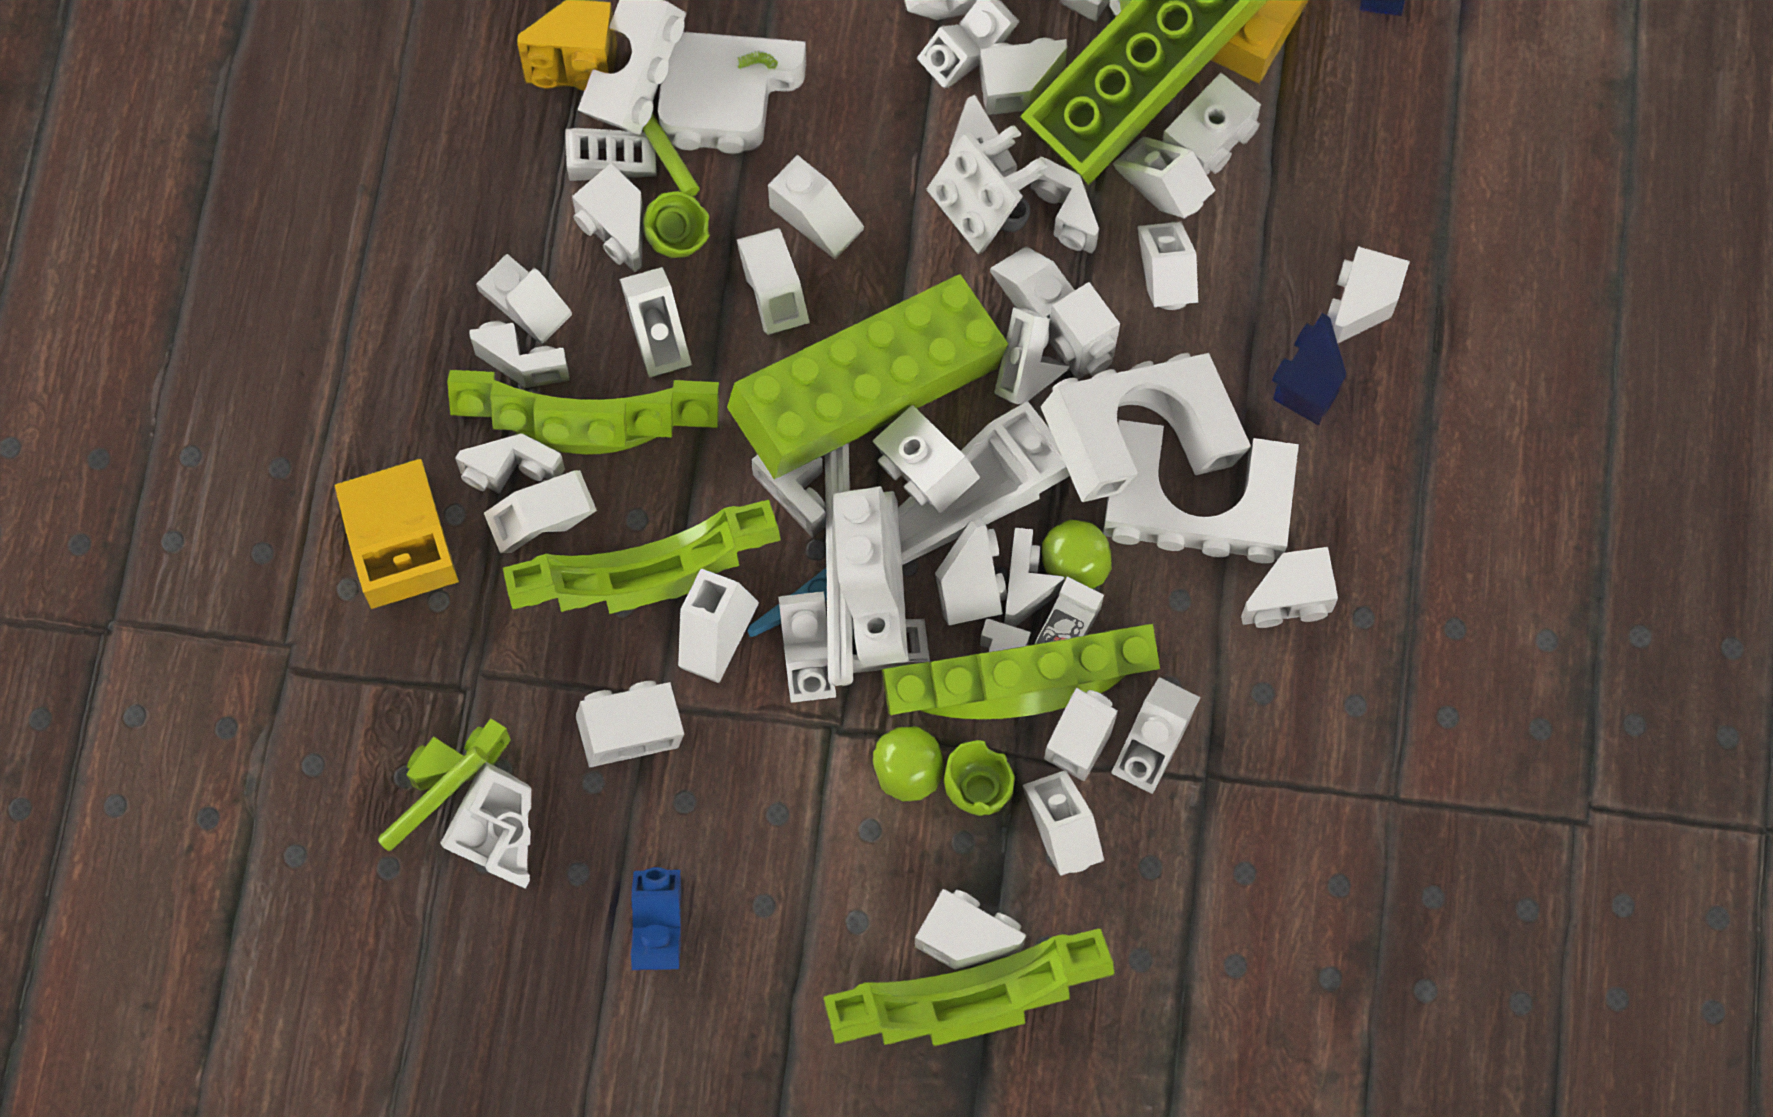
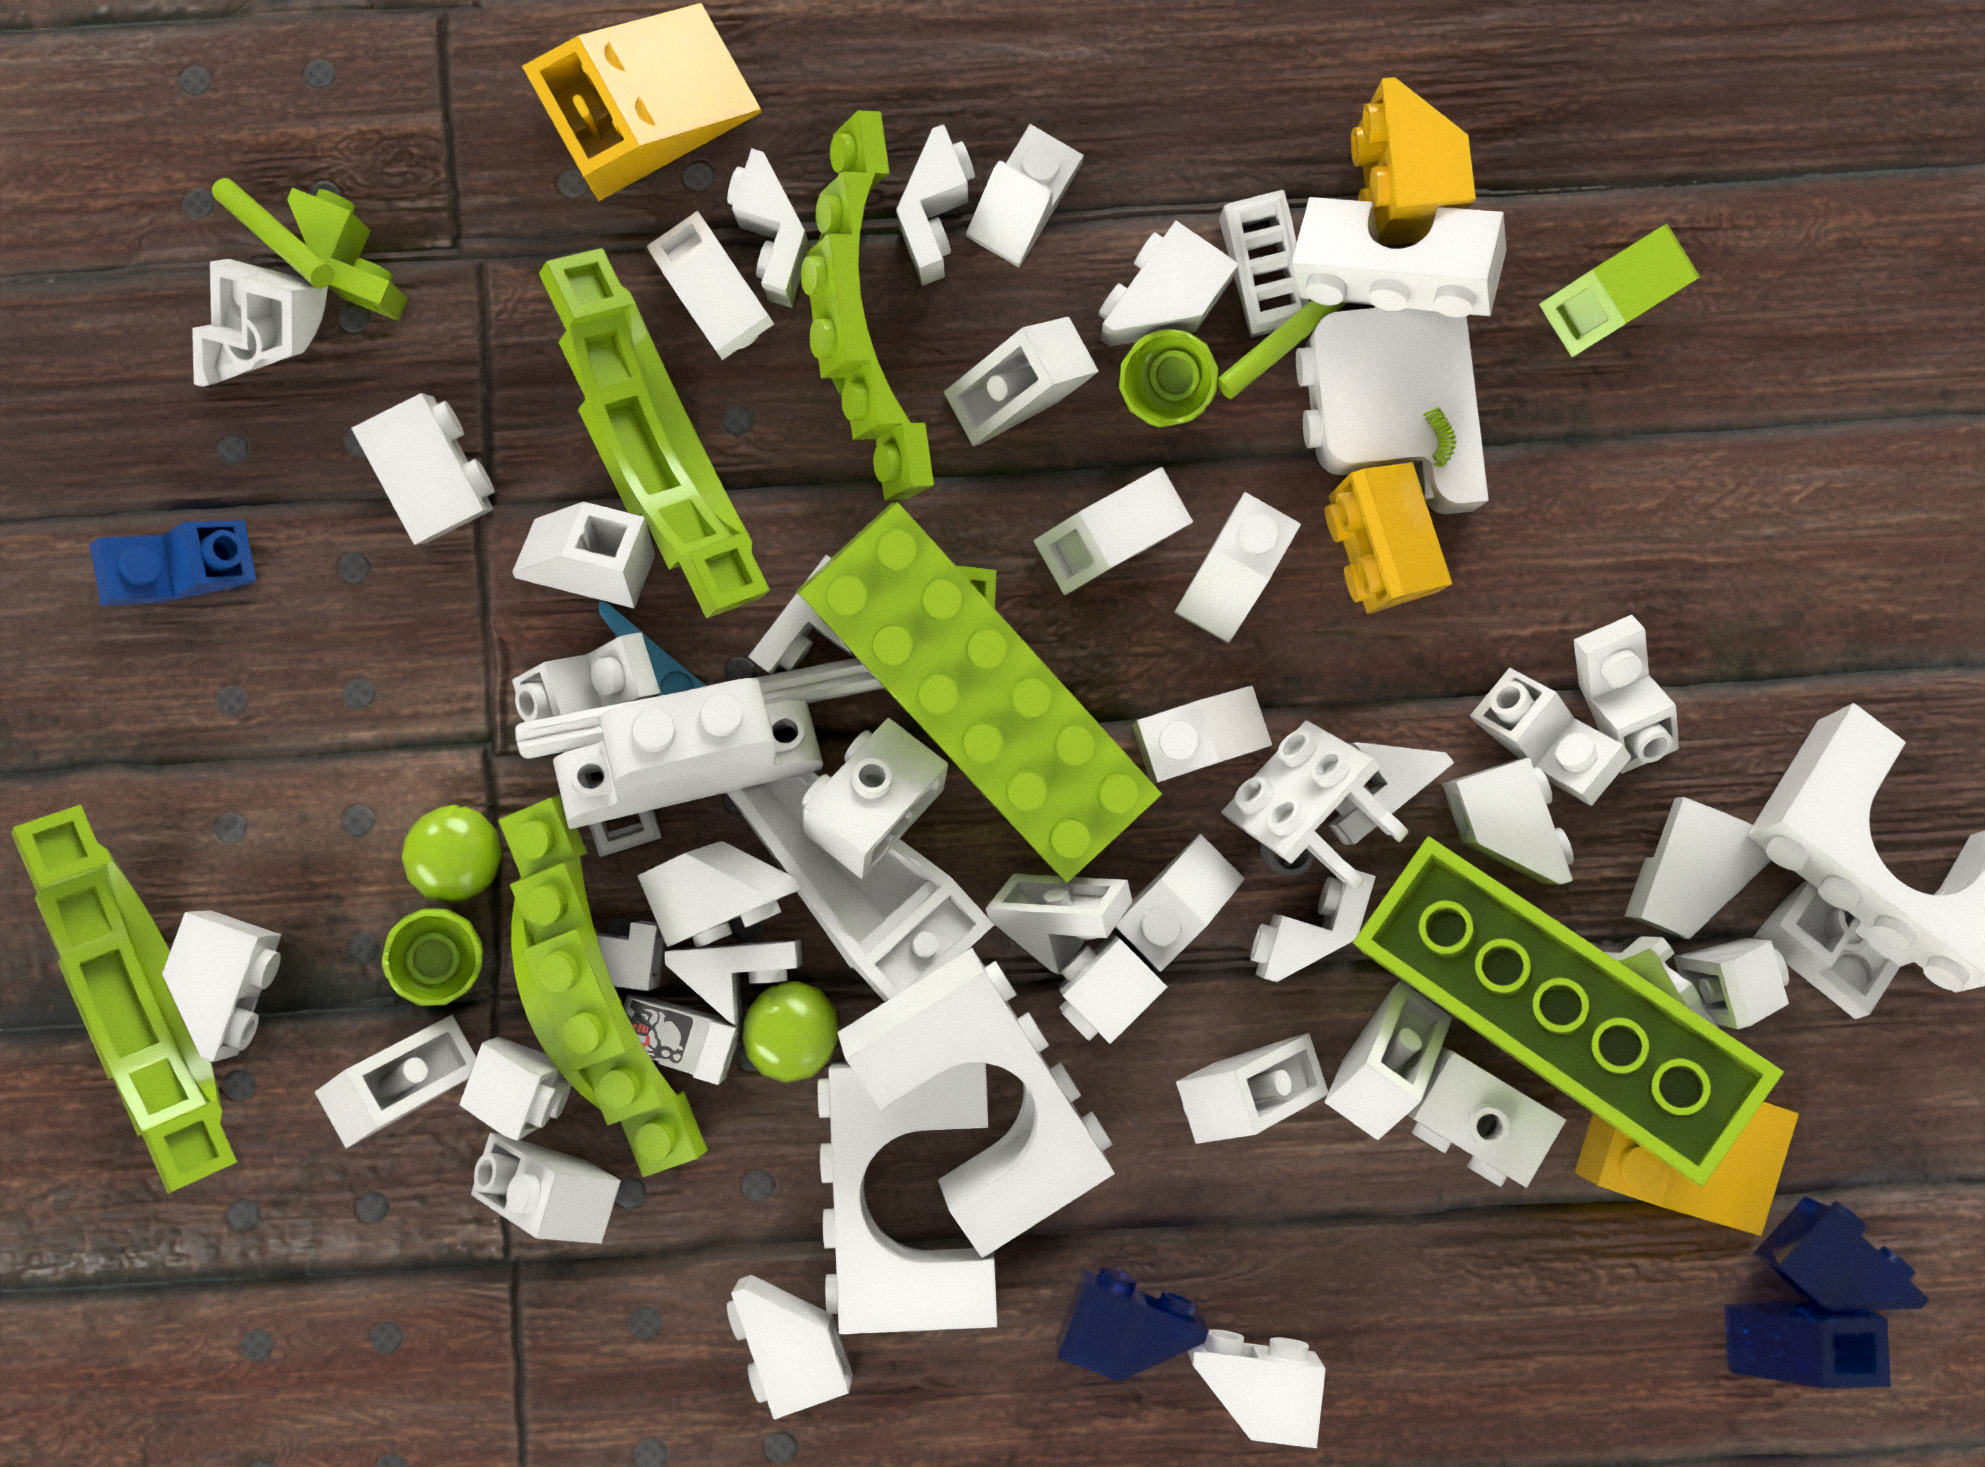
camera: 80 degrees right, 15 degrees up
(816, 111) = (1386, 537): none -> yellow slope
(923, 252) = (1201, 734): none -> white slope

